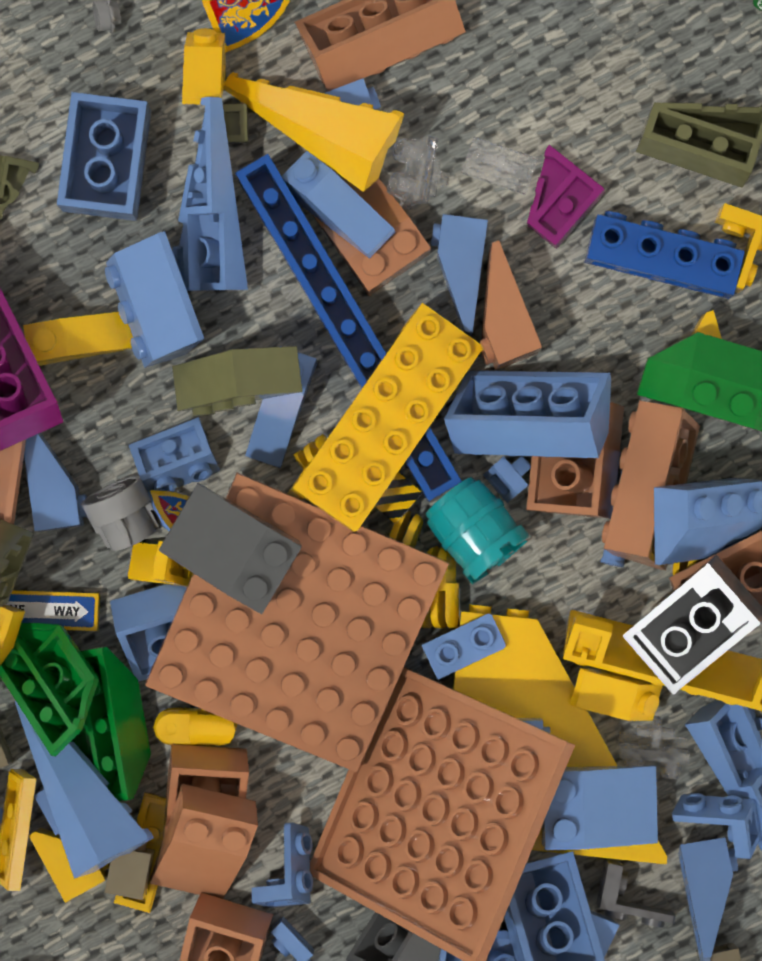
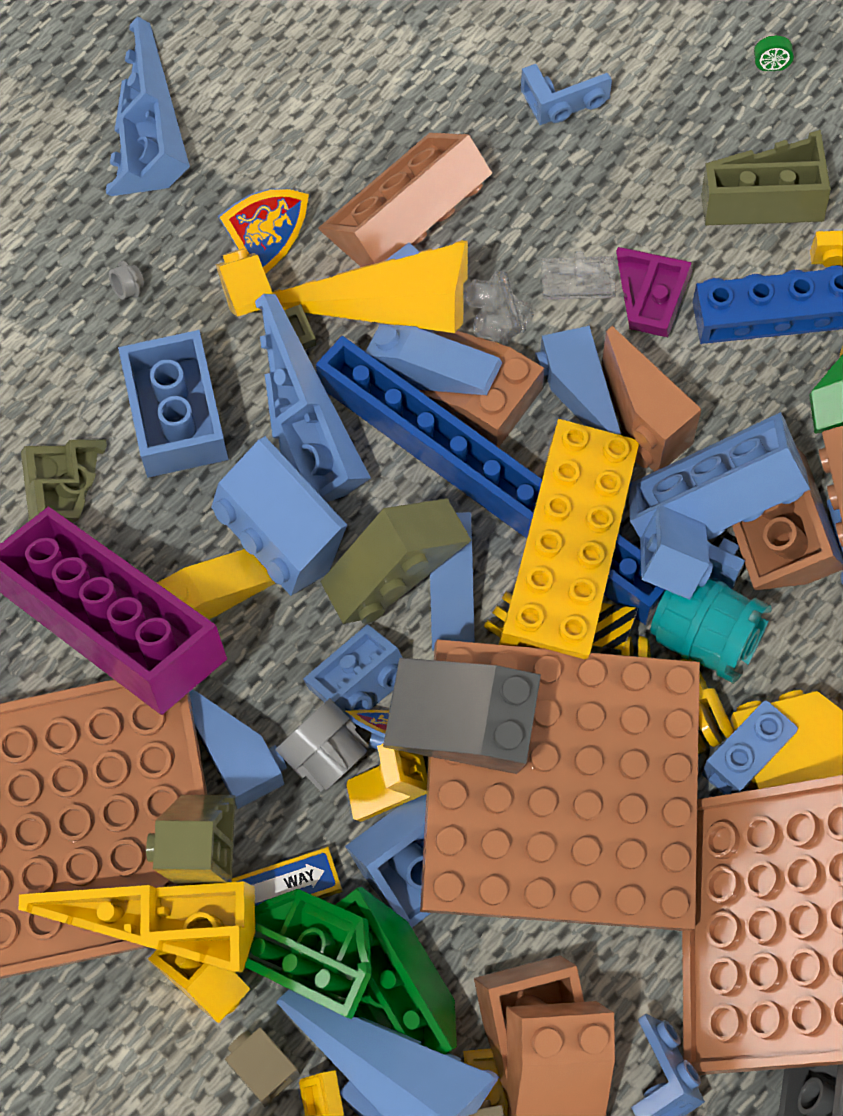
camera: 20 degrees left, 20 degrees down
(193, 727) = (493, 950): yellow arm -> none
(465, 466) = (675, 552): none -> medium blue brick

